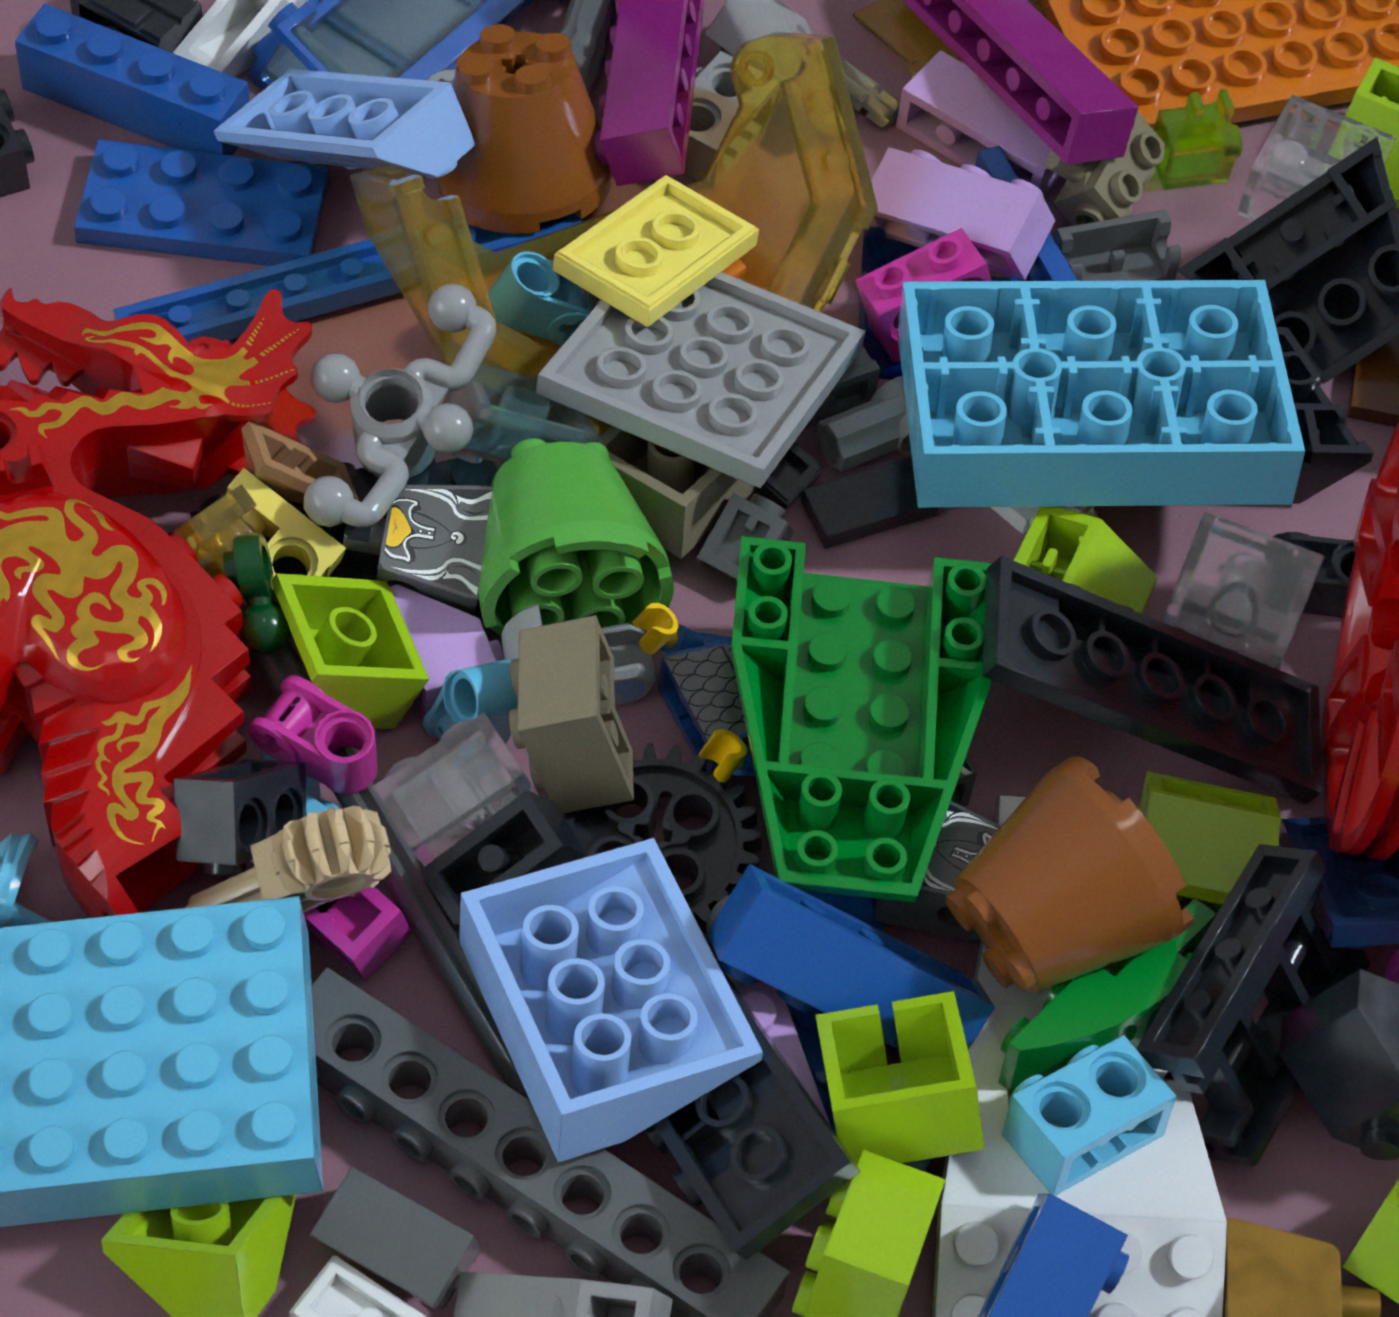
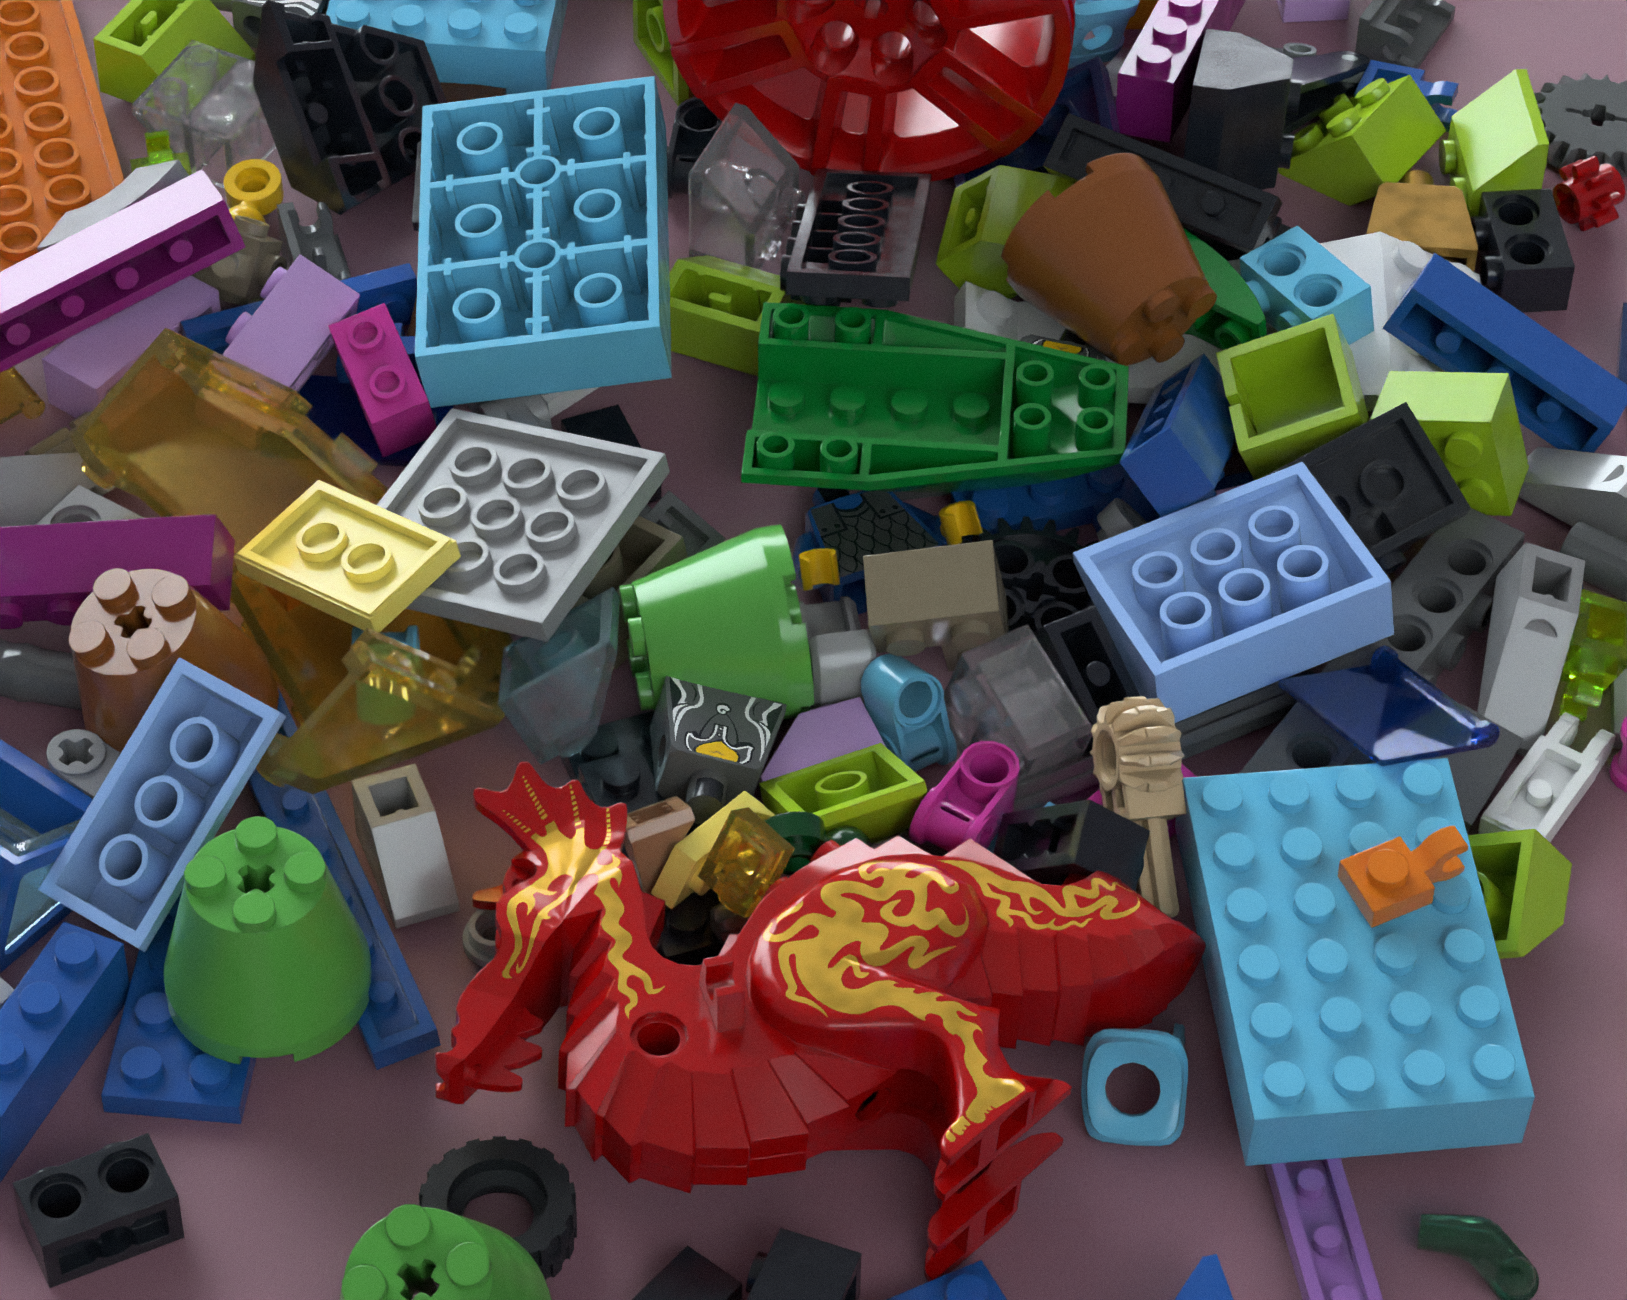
camera: 85 degrees left, 10 degrees down
(128, 1073) = (1396, 881): none -> orange plate
(191, 203) = (264, 949): none -> bright green cone
(352, 316) = (404, 845): none -> light grey slope
(413, 395) = (594, 732): light grey wheel -> none
(415, 1126) = (1391, 711): none -> clear blue piece
(1154, 97) = (137, 186): none -> tile
(1215, 213) = (253, 188): none -> yellow plate

